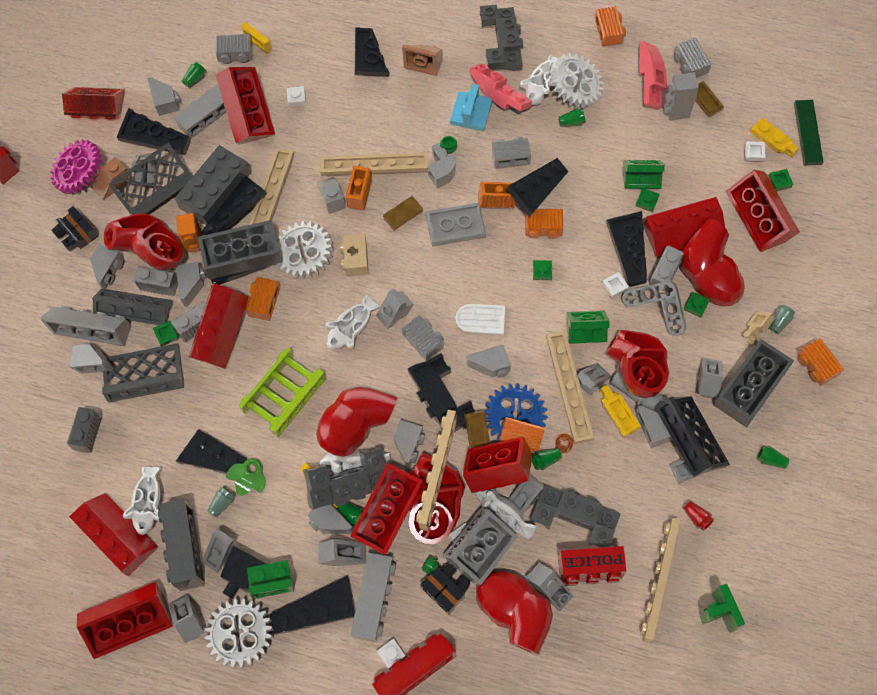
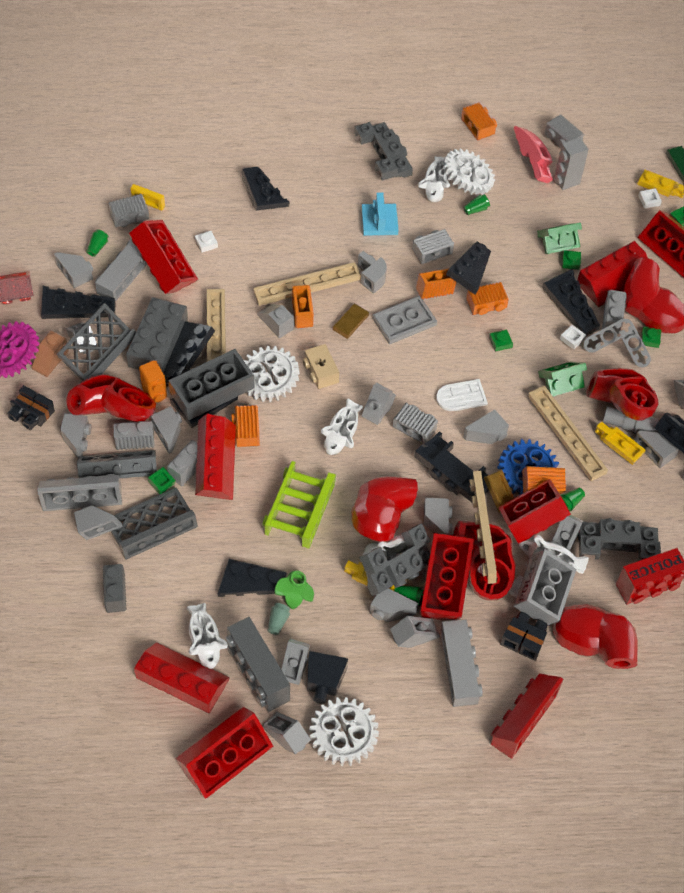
camera: 25 degrees left, 10 degrees down
(269, 579) = (359, 672): green bracket -> none
(316, 609) = (413, 687): black wing -> none
(391, 653) = (496, 709): white plate -> none
(422, 58) = (317, 183): nougat slope -> none
(430, 566) = (502, 621): green plate -> none
(449, 144) = (371, 249): green plate -> none
(495, 88) = (395, 192): coral slope -> none
(548, 584) = (619, 602): light grey slope -> none
(565, 437) = (579, 478): clear orange bush -> none
(593, 378) = (585, 421): light grey slope -> none
(707, 100) = (594, 168): pearl gold tile -> none

